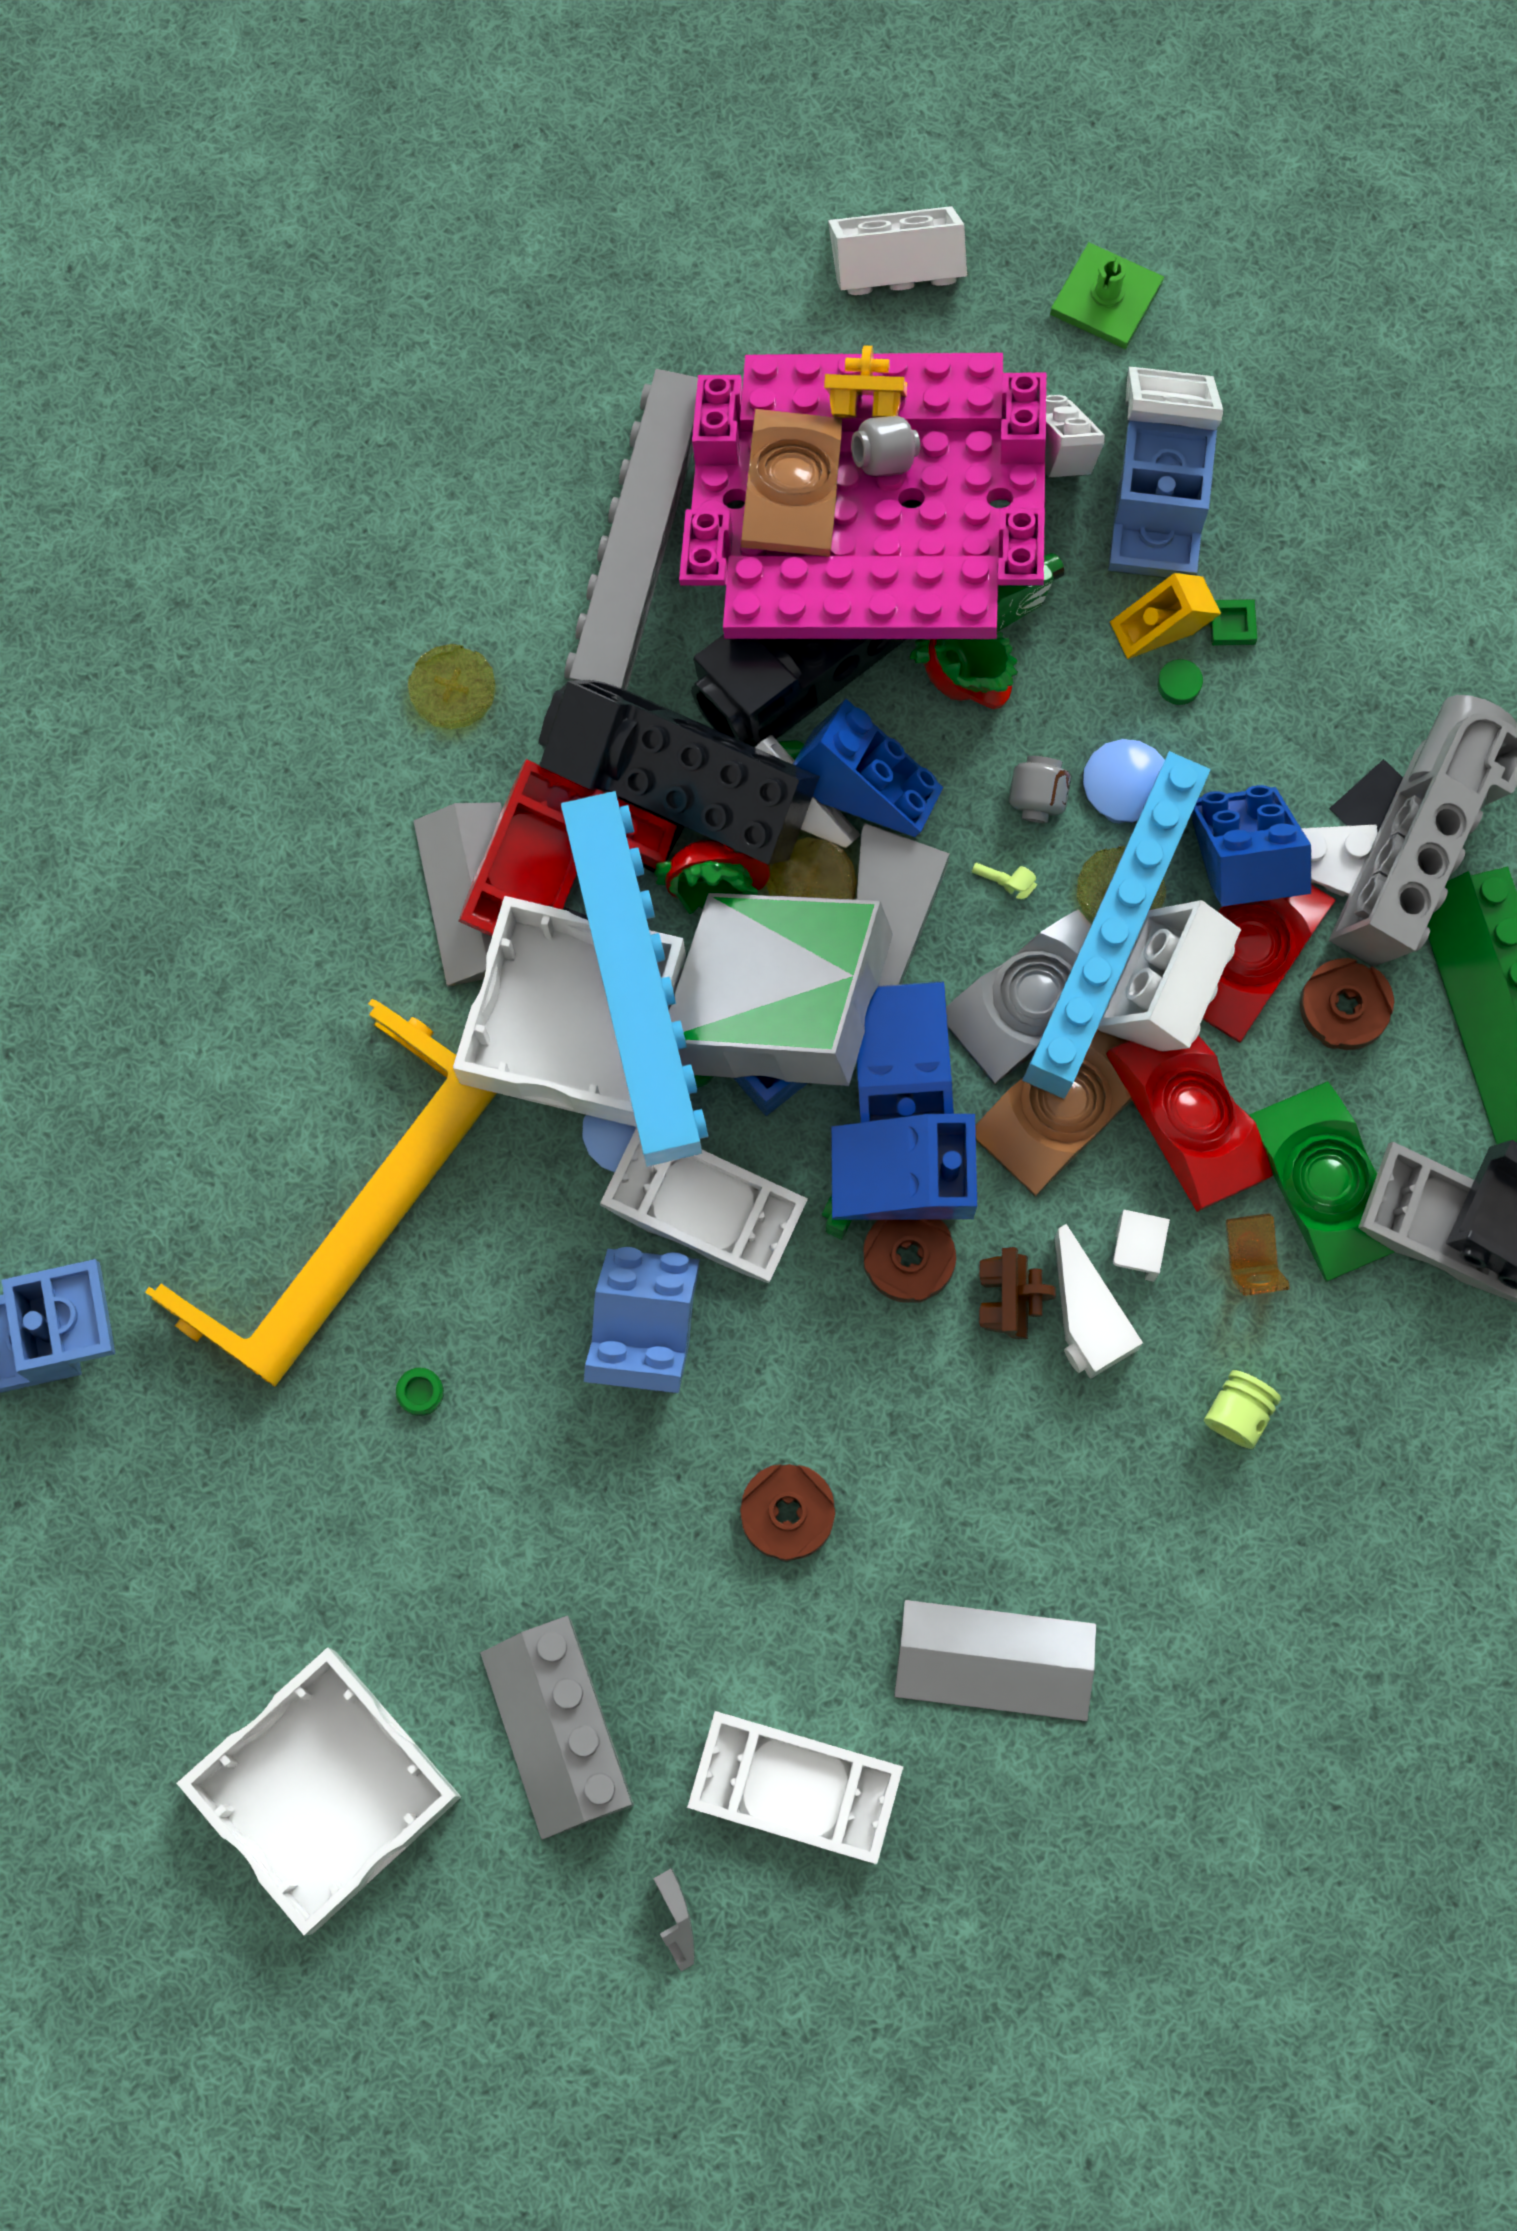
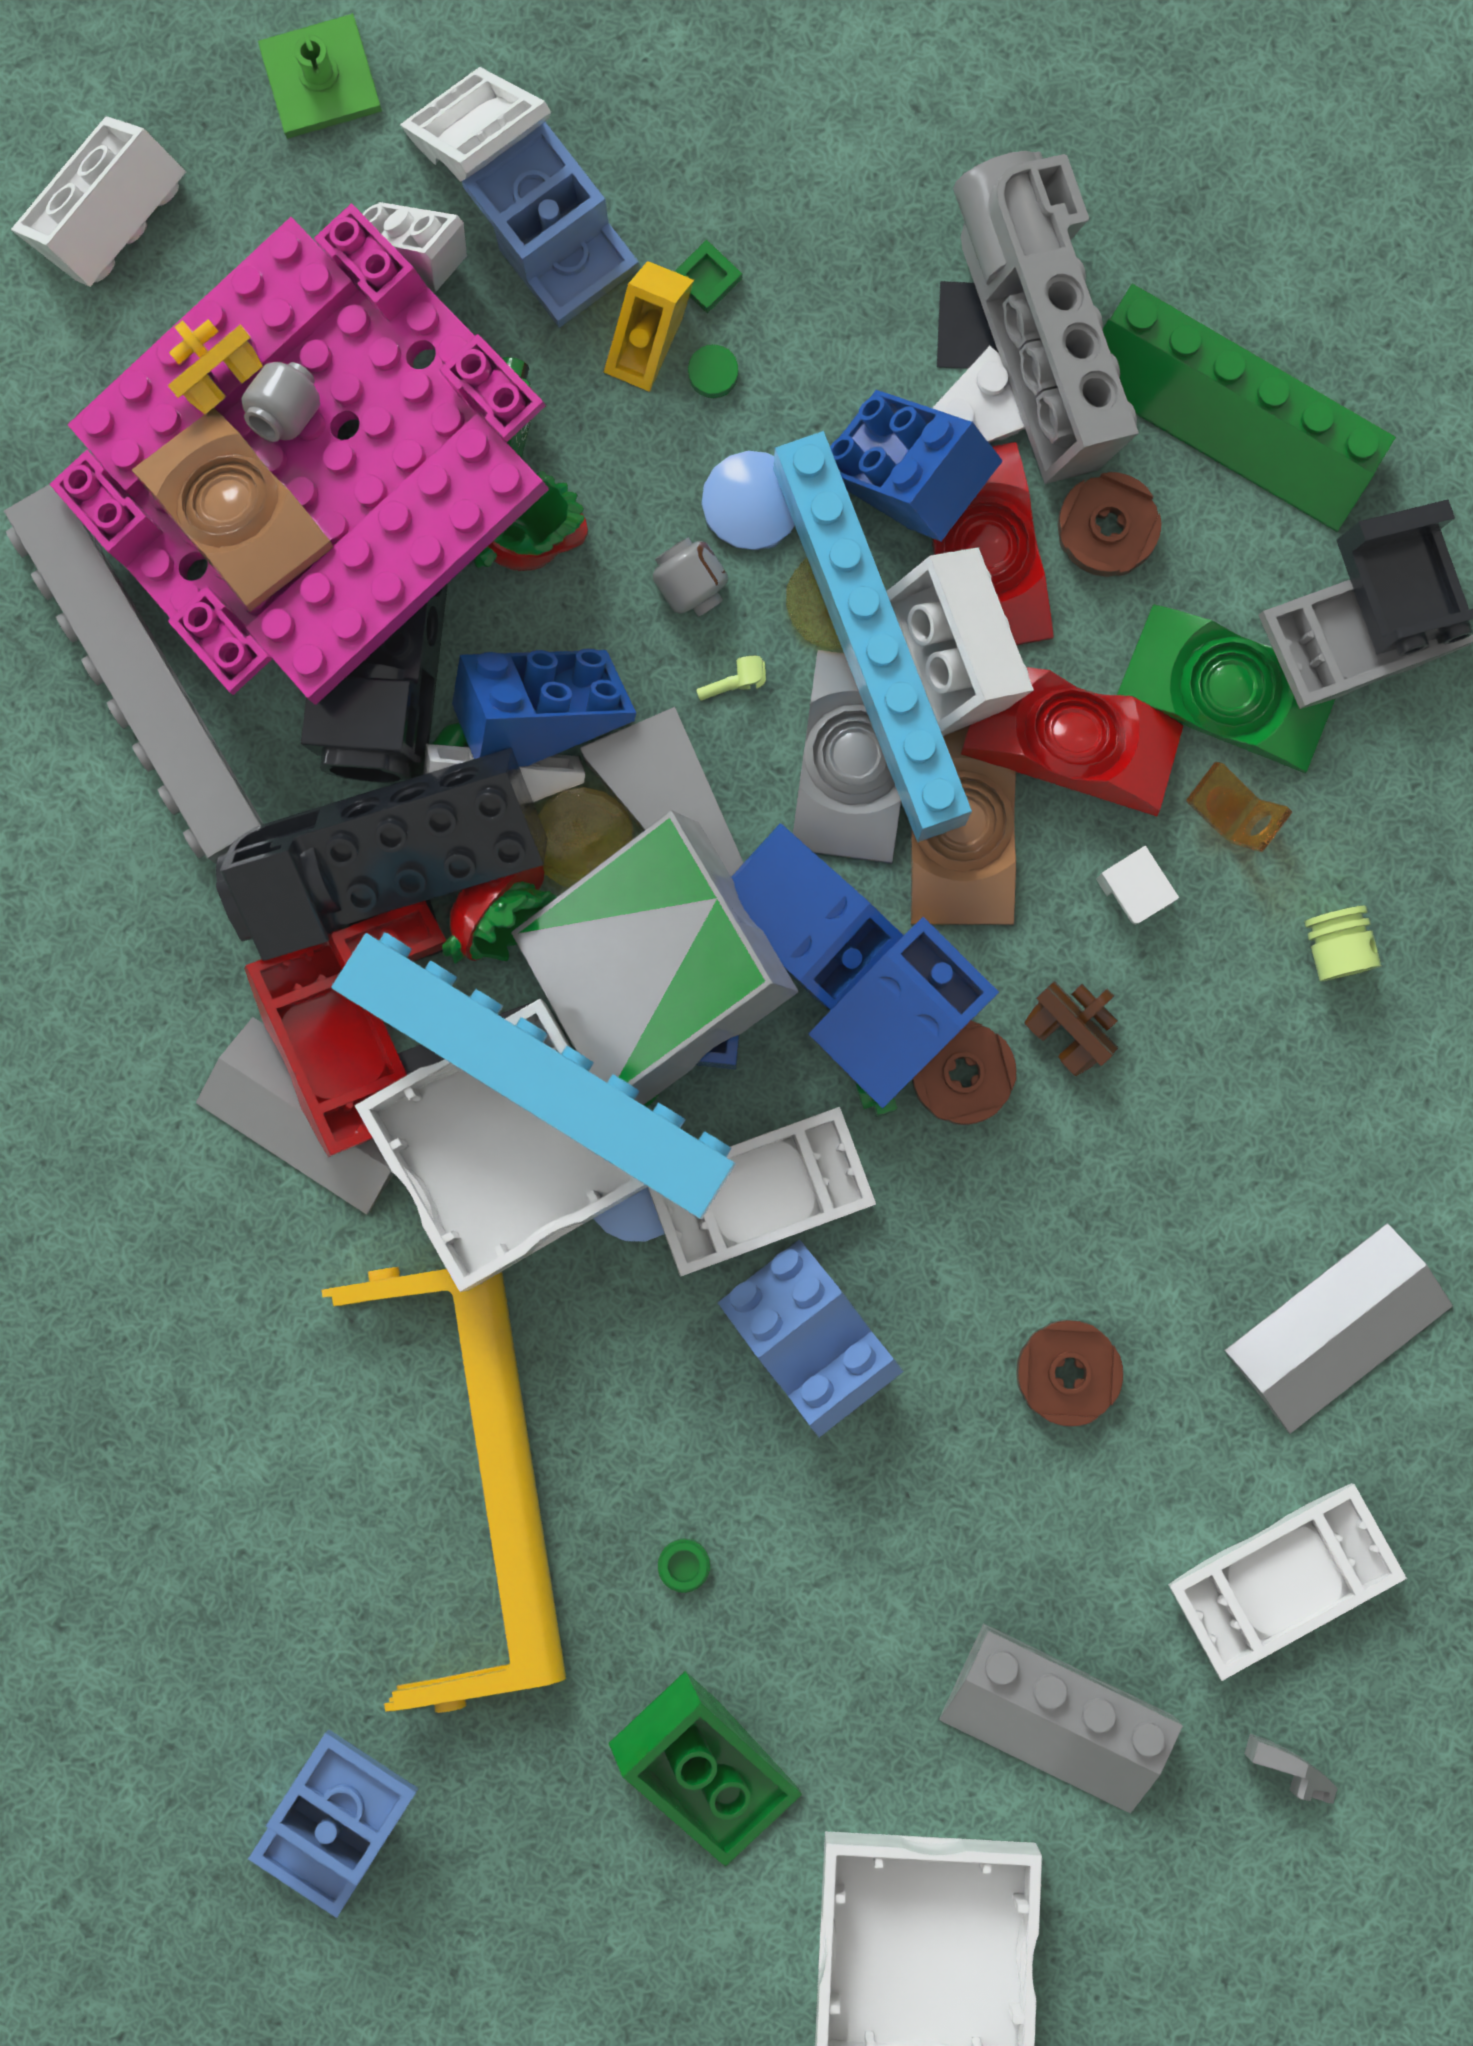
camera: 40 degrees left, 10 degrees up
(300, 1530) = (703, 1769): none -> green slope
(452, 686) = (109, 956): clear yellow tile -> none
(1092, 1319) = (1153, 982): white slope -> none

